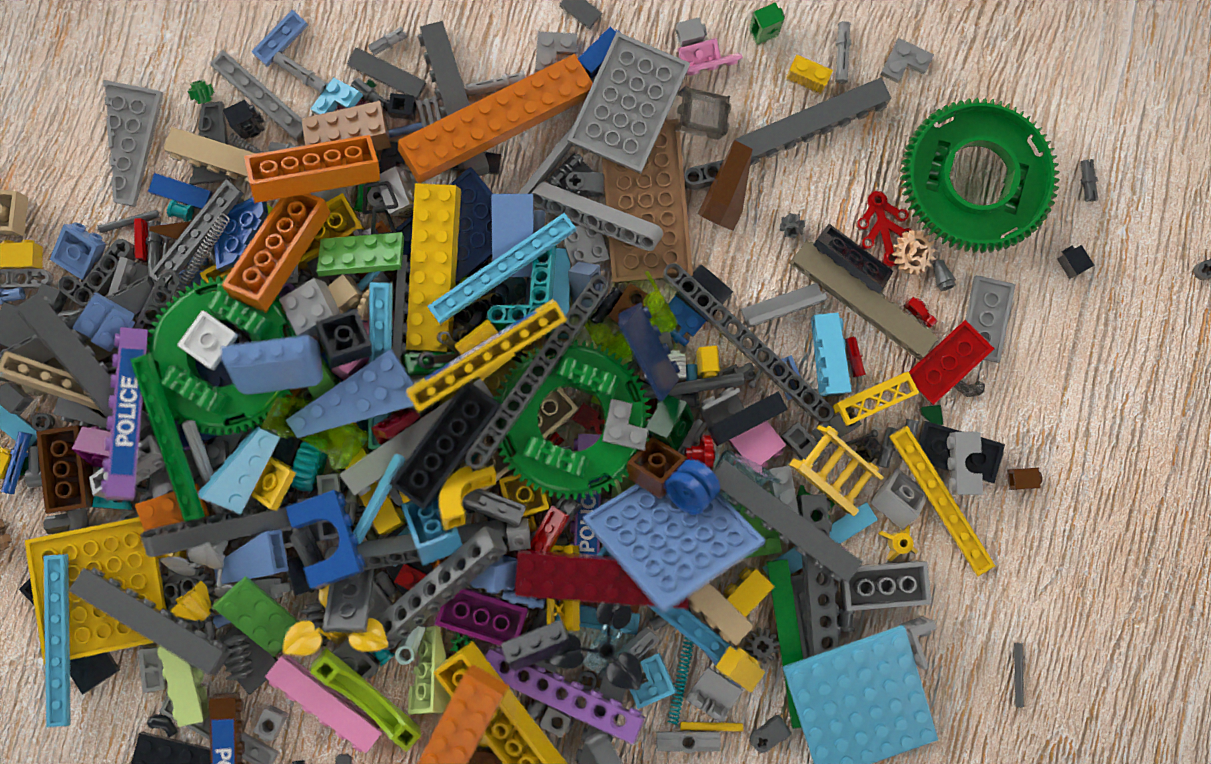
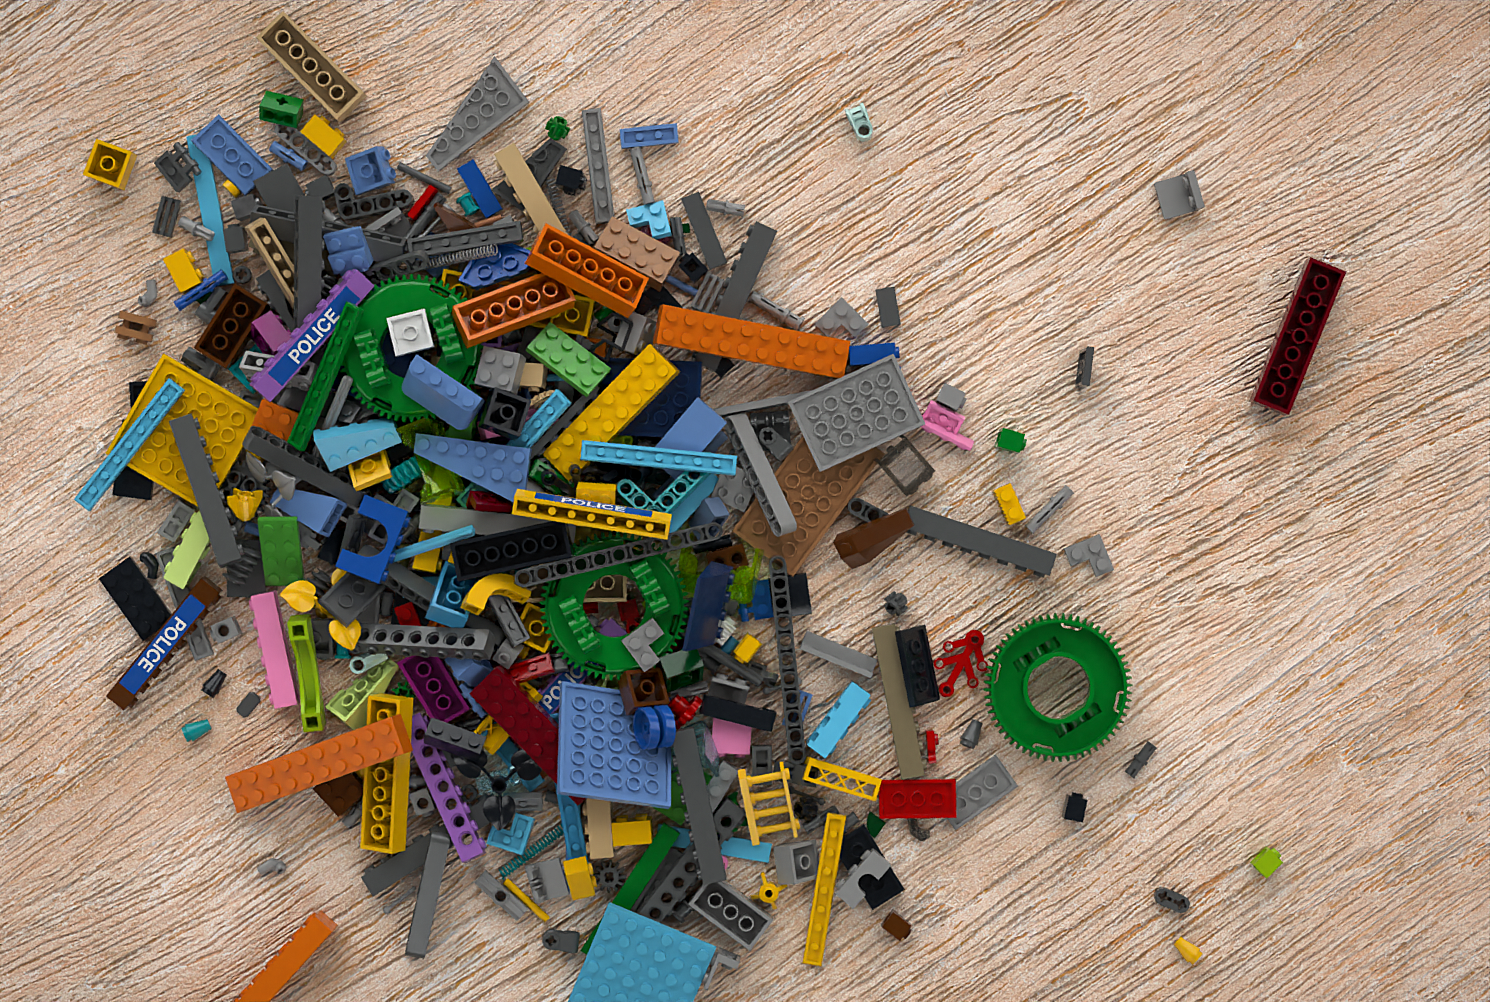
camera: 45 degrees right, 5 degrees up
(854, 357) = (855, 736): red axle -> none
(914, 252) = (964, 699): light nougat gear -> none

